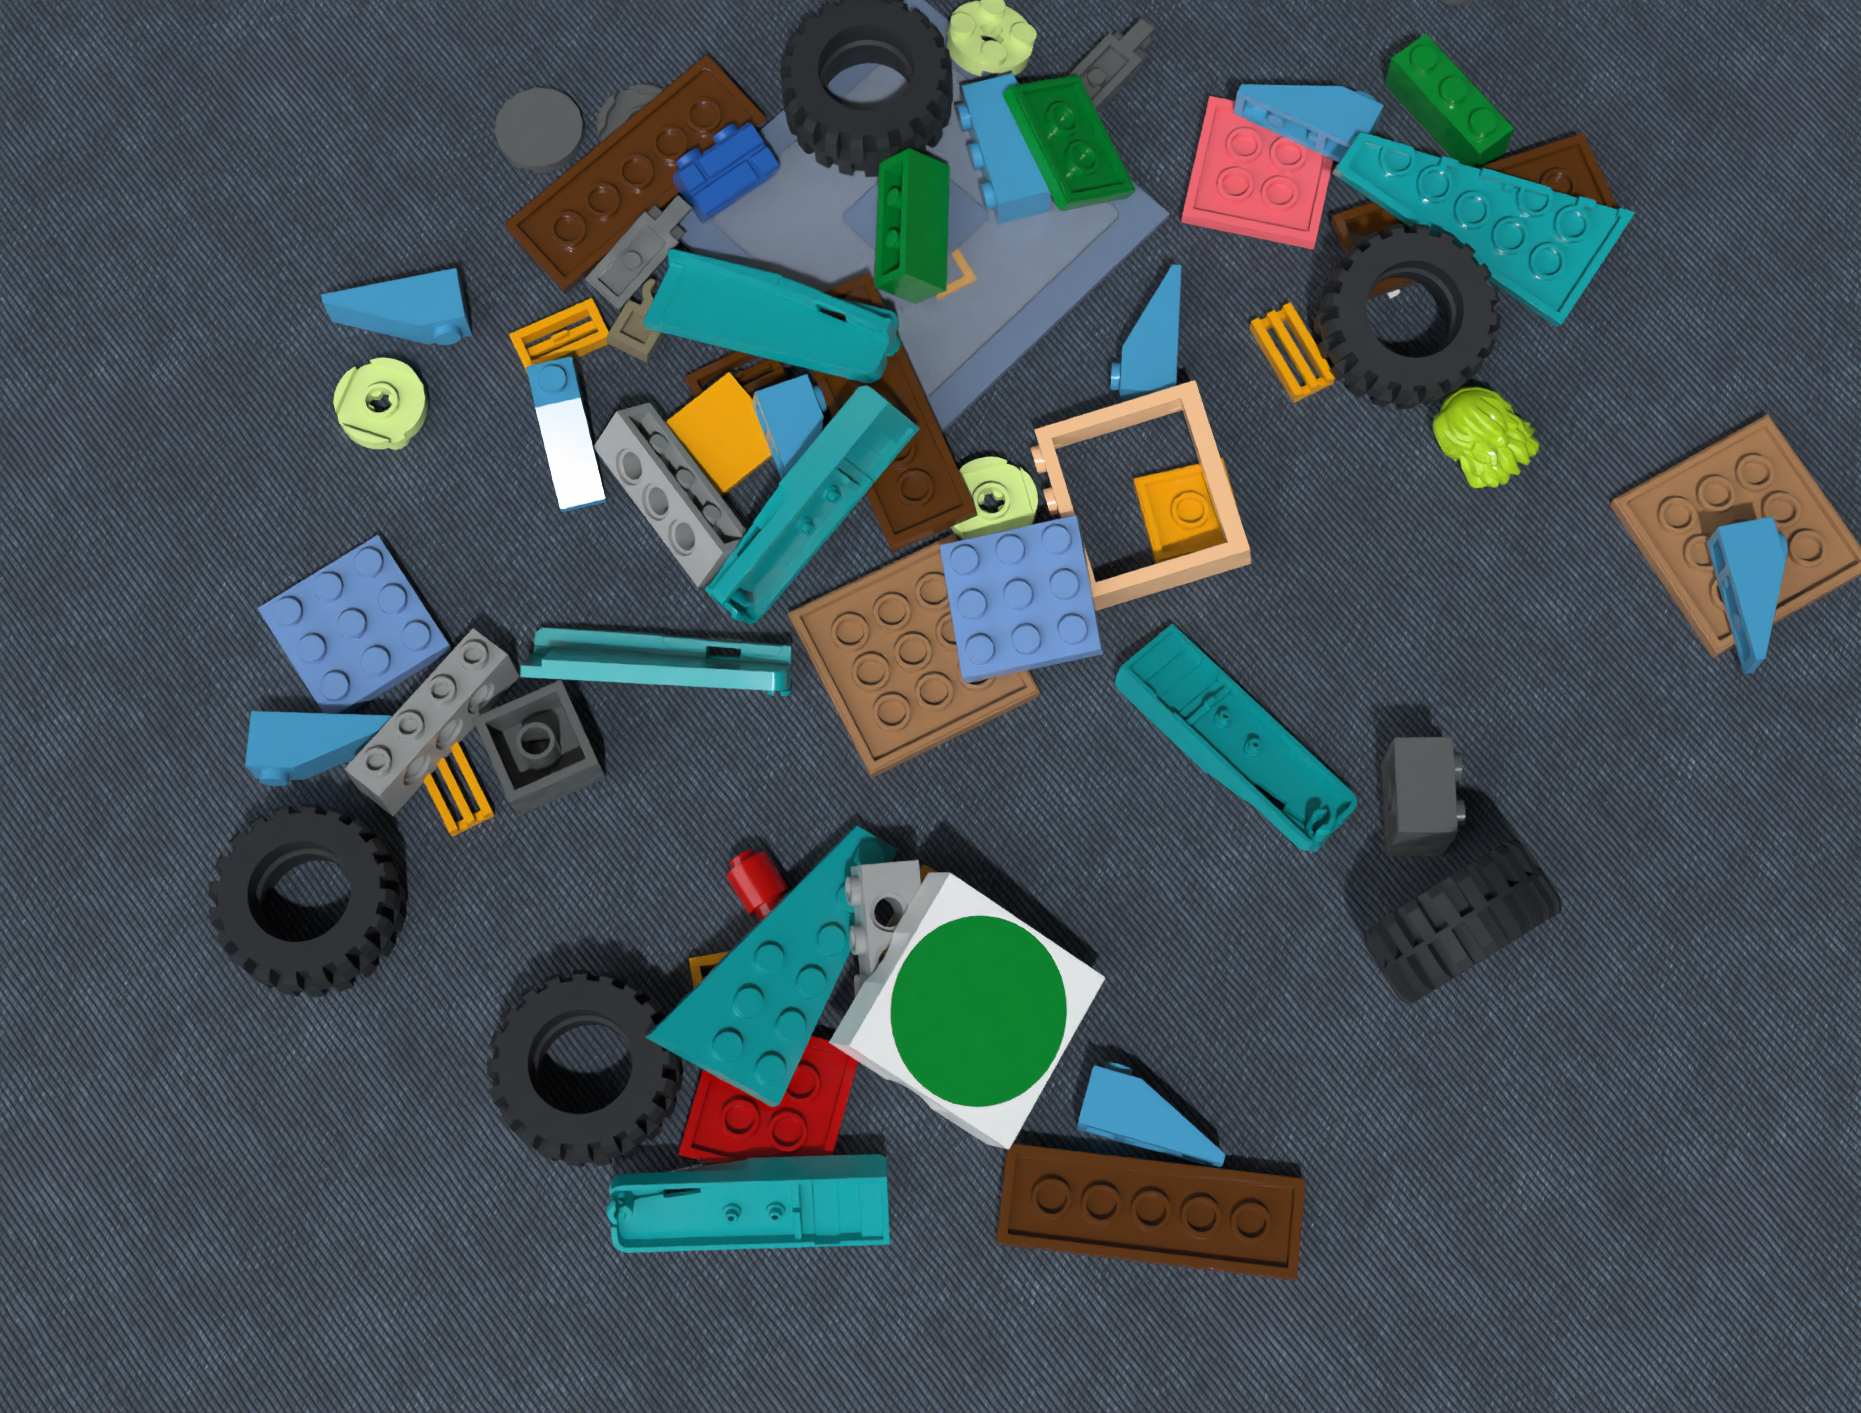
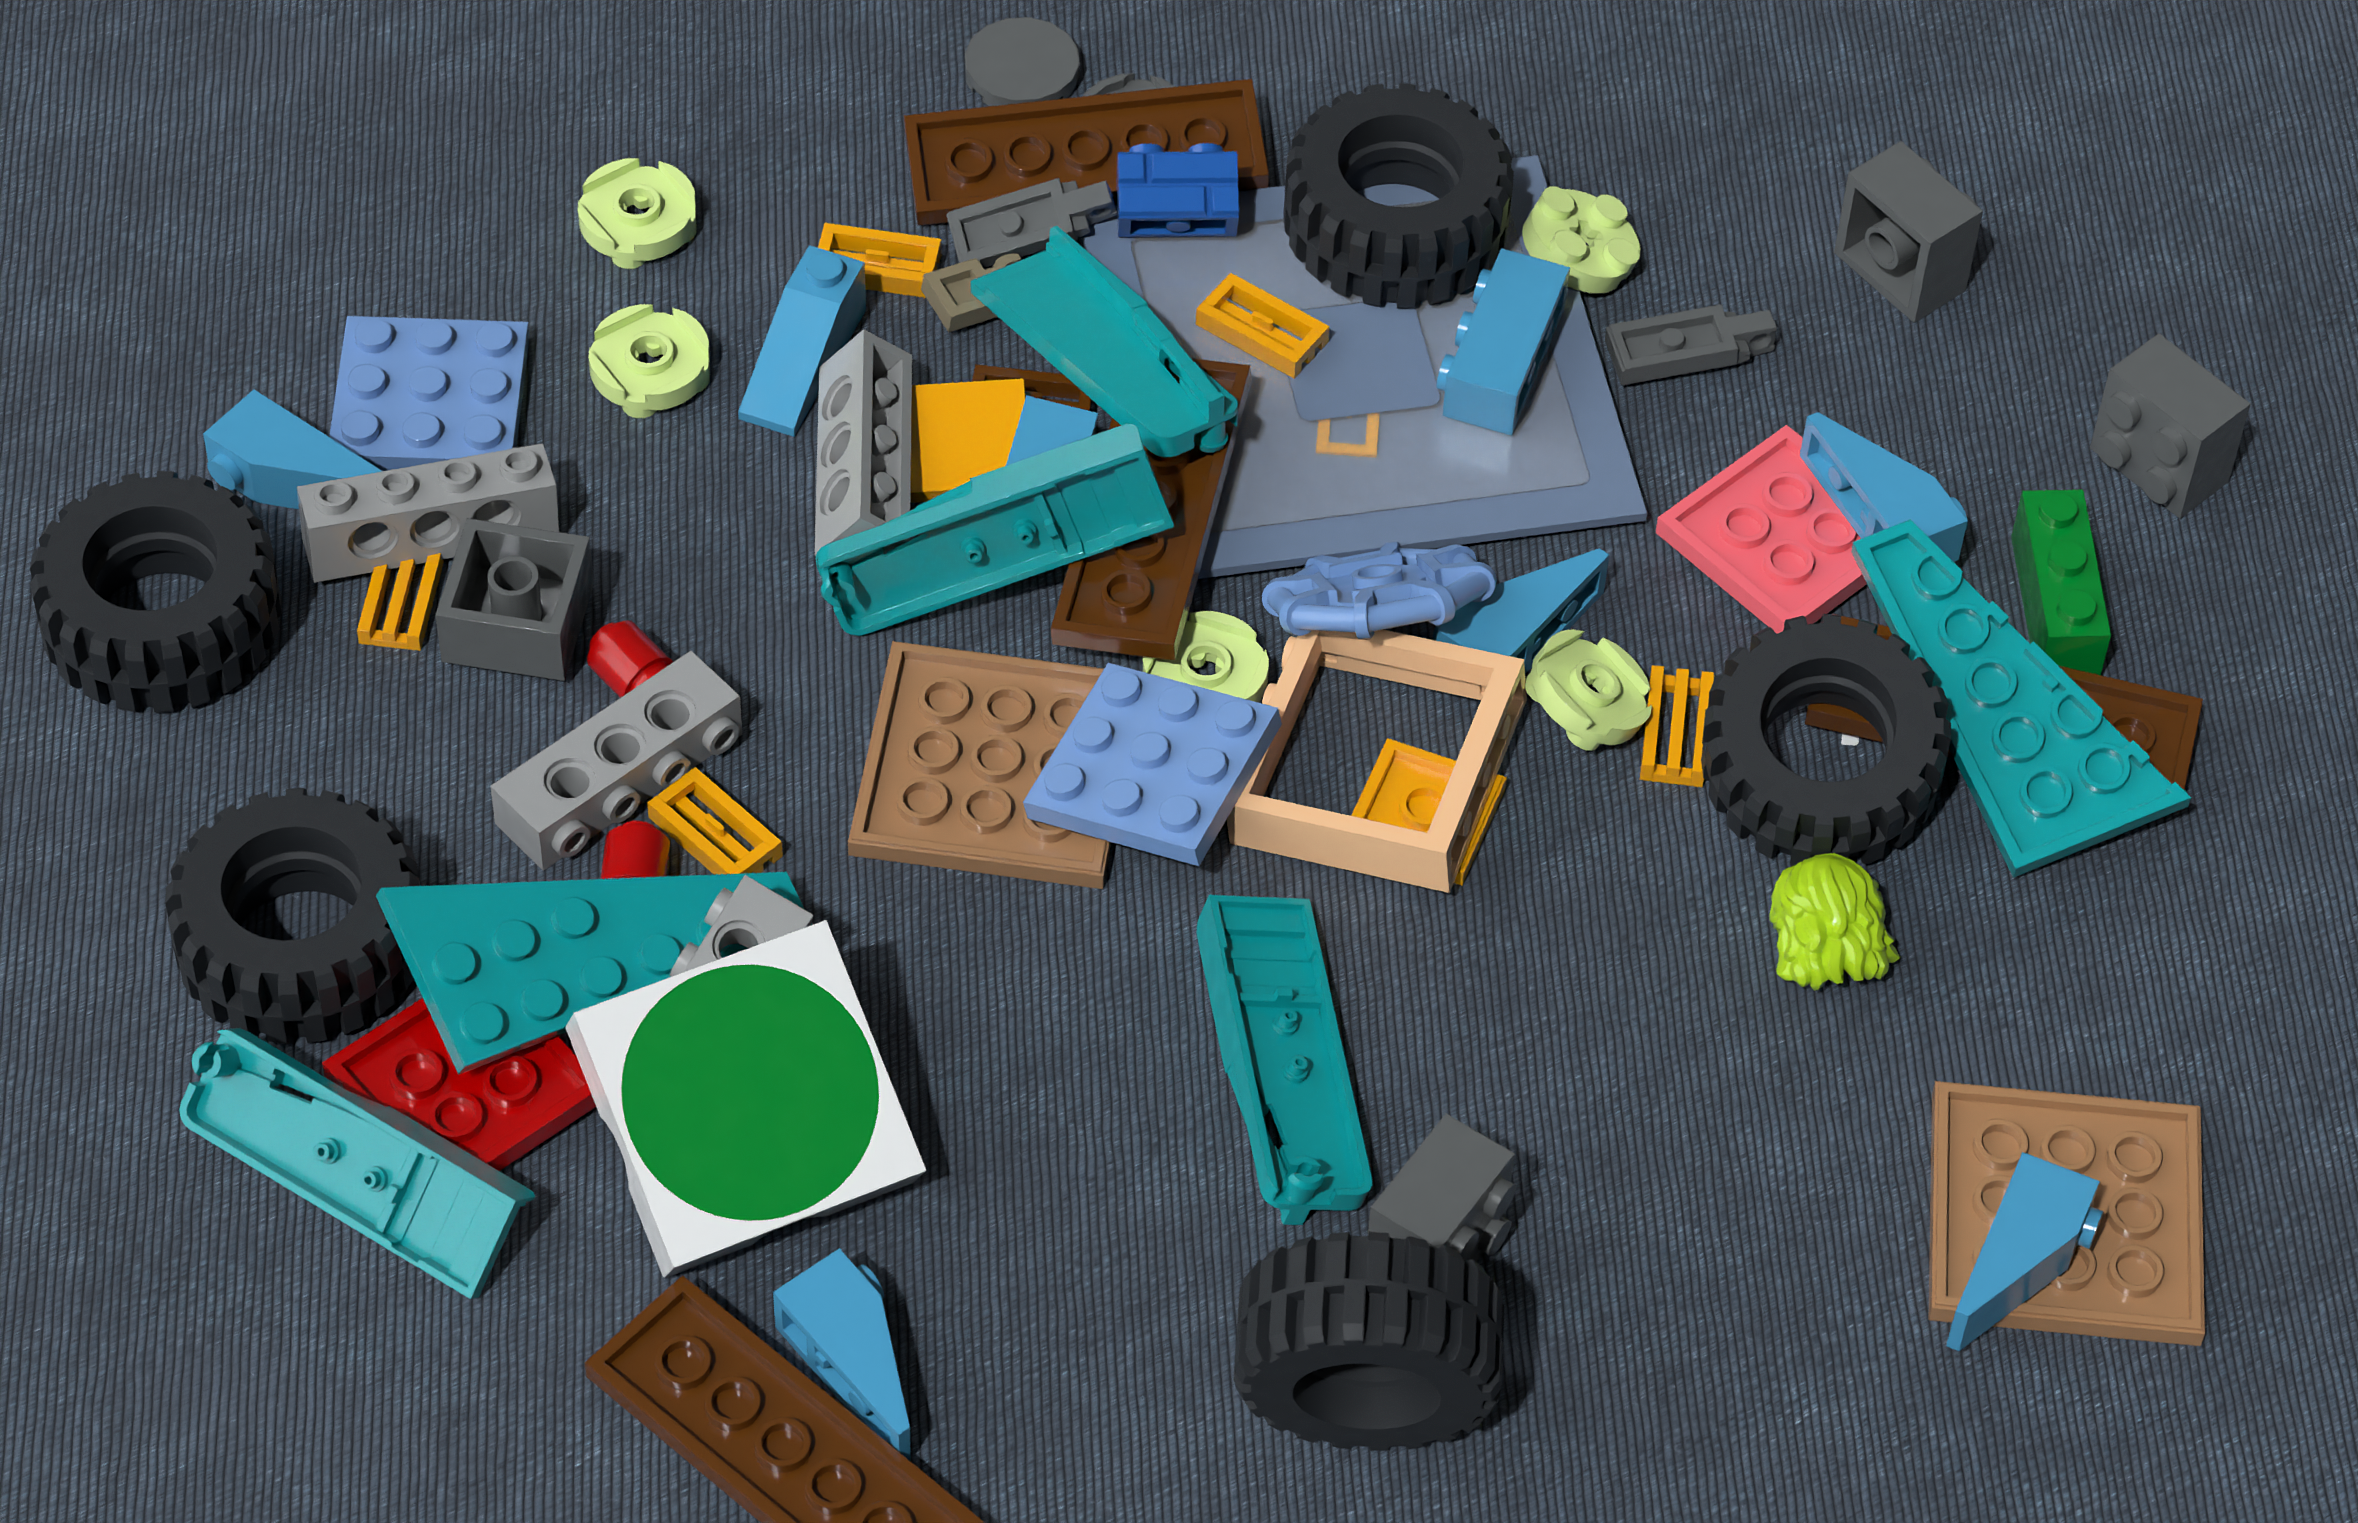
camera: 30 degrees right, 20 degrees down
(412, 308) = (740, 140): dark azure slope -> none
(488, 532) = (656, 385): none -> yellowish green plate
(644, 741) = (625, 656): none -> red brick
(657, 660) = (720, 598): teal piece -> none
(696, 742) = (617, 760): none -> light grey brick
(781, 800) = (765, 843): none -> light orange tile
(837, 241) = (1255, 331): none -> light orange tile
(912, 226) = (1336, 351): green brick -> none
(1068, 142) = (1578, 369): green tile -> none
(1087, 378) = (1379, 590): none -> medium blue plate
(1216, 378) = (1561, 685): none -> yellowish green plate

